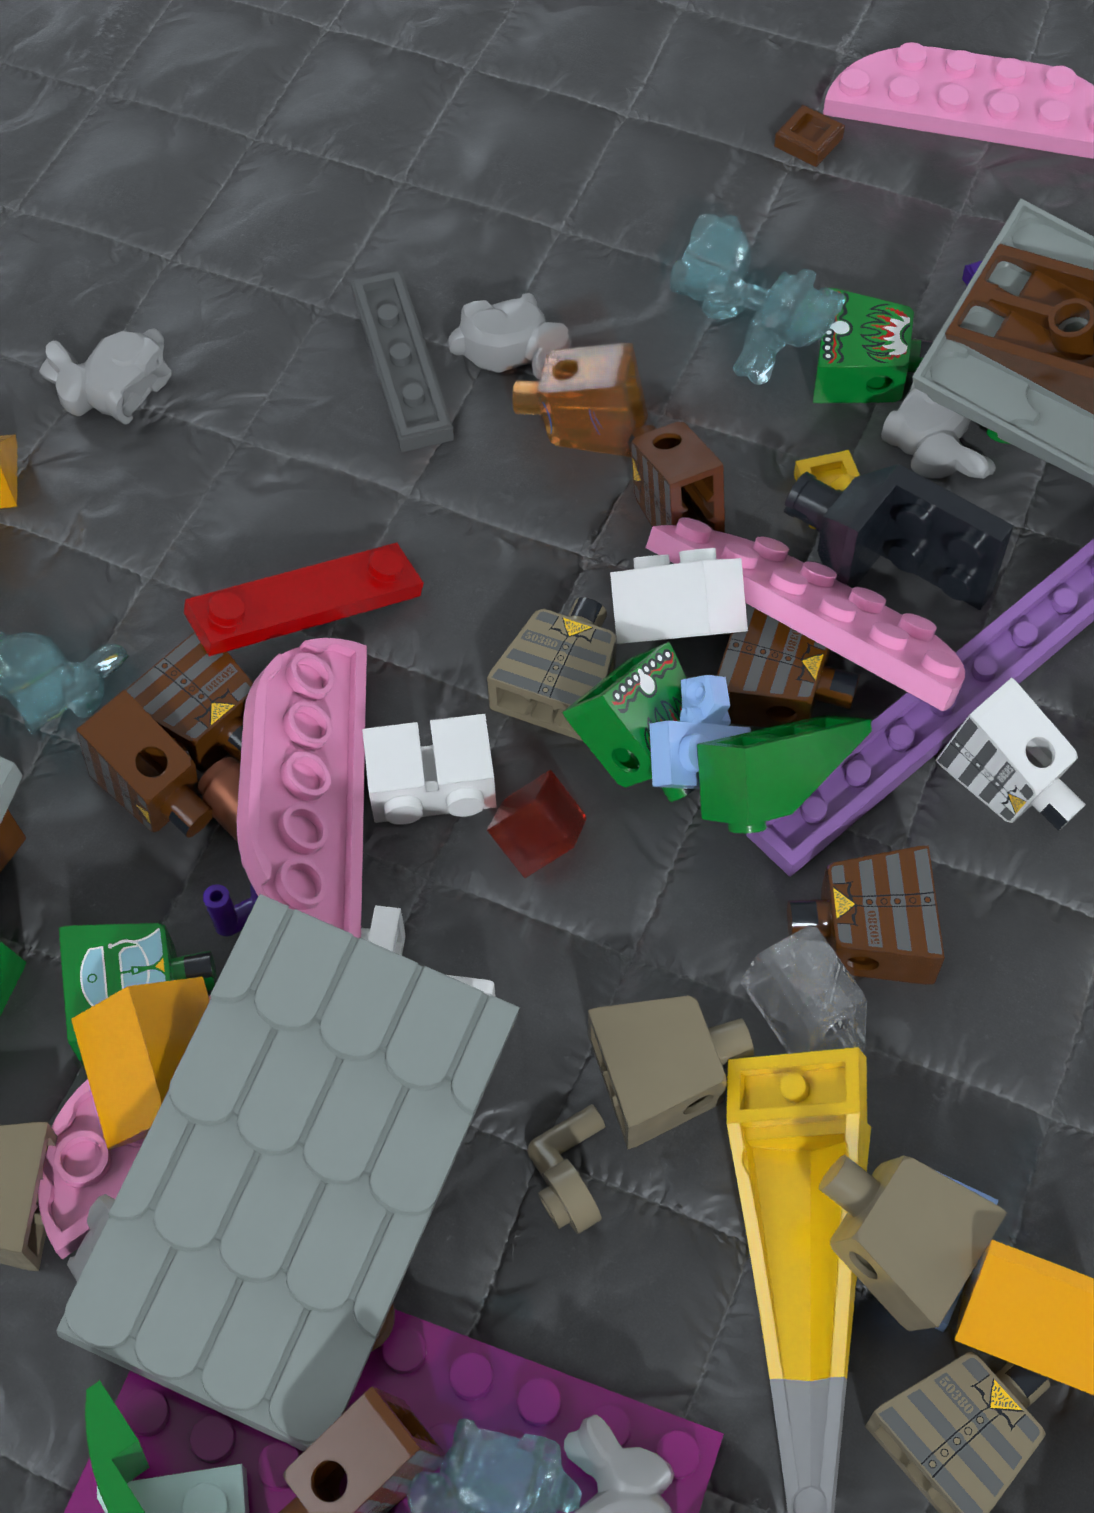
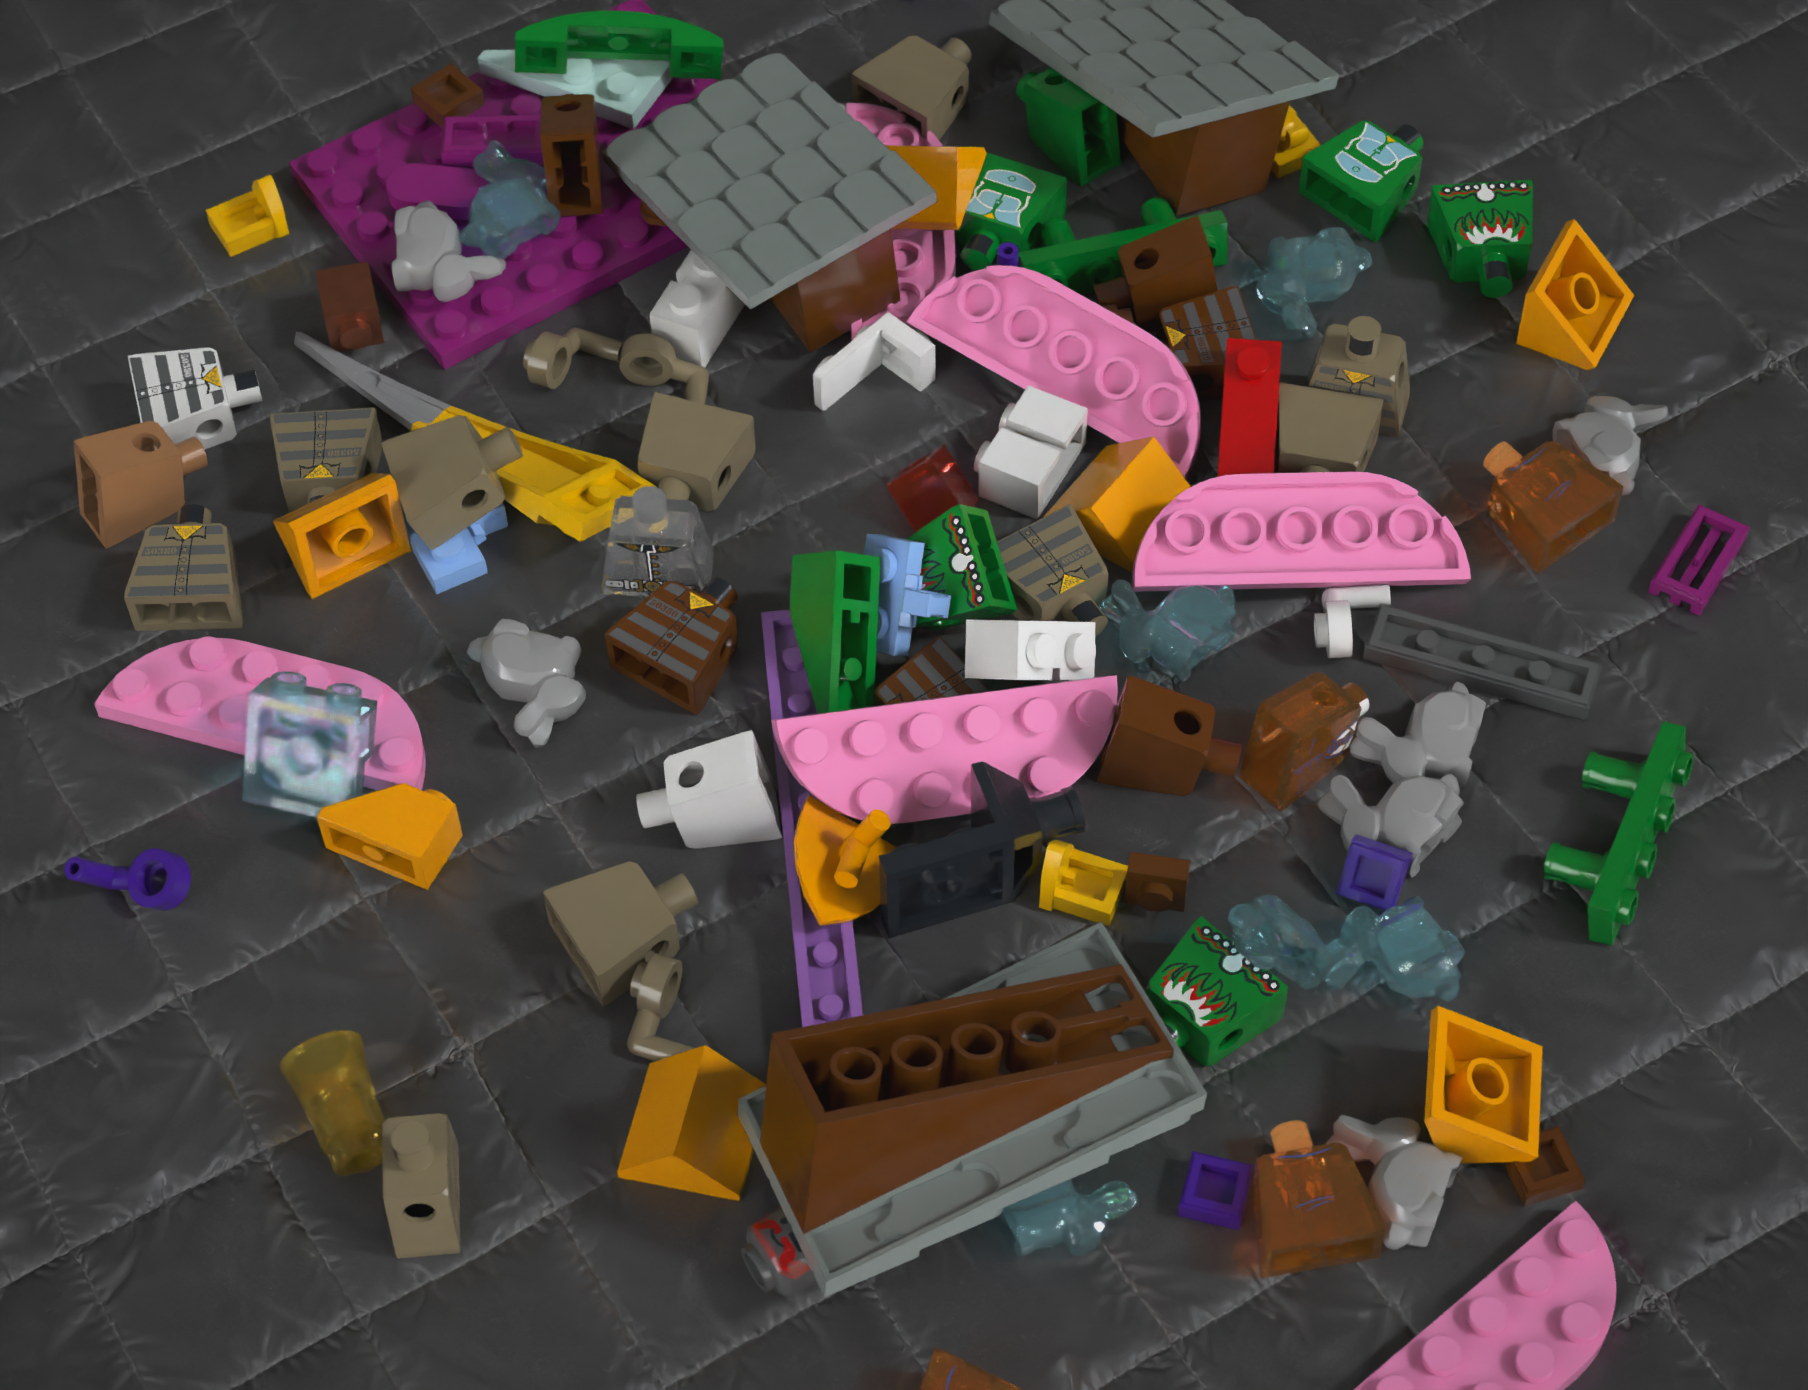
camera: 125 degrees right, 5 degrees down
(78, 809) = (1096, 259): none -> green plate
(160, 544) = (1367, 364): none -> dark tan torso
(194, 282) = (1682, 589): none -> magenta tile
(208, 379) = (1549, 500): none -> clear orange torso
(254, 542) = (1325, 430): none -> dark tan torso
(393, 513) = (1299, 535): none -> bright pink plate
(426, 677) = (1123, 496): none -> light orange slope
(449, 450) = (1334, 626): none -> white plate
(497, 1179) = (695, 311): none -> white piece
(500, 188) = (1633, 851): none -> green plate
(540, 552) = (1178, 631): none -> clear light blue animal
(603, 314) = (1410, 816): none -> light grey animal
(641, 1303) = (550, 354): none -> dark tan plate
(669, 311) = (1373, 873): none -> dark purple tile
(797, 428) = (1157, 882): none -> reddish brown plate
(801, 169) = (1482, 1090): none -> light orange slope
(899, 180) = (1406, 1175): none -> light grey animal
(964, 212) = (1311, 1206): none -> clear orange torso
(992, 625) = (839, 861): none -> light orange shield
(1014, 1023) = (534, 671): none -> light grey animal

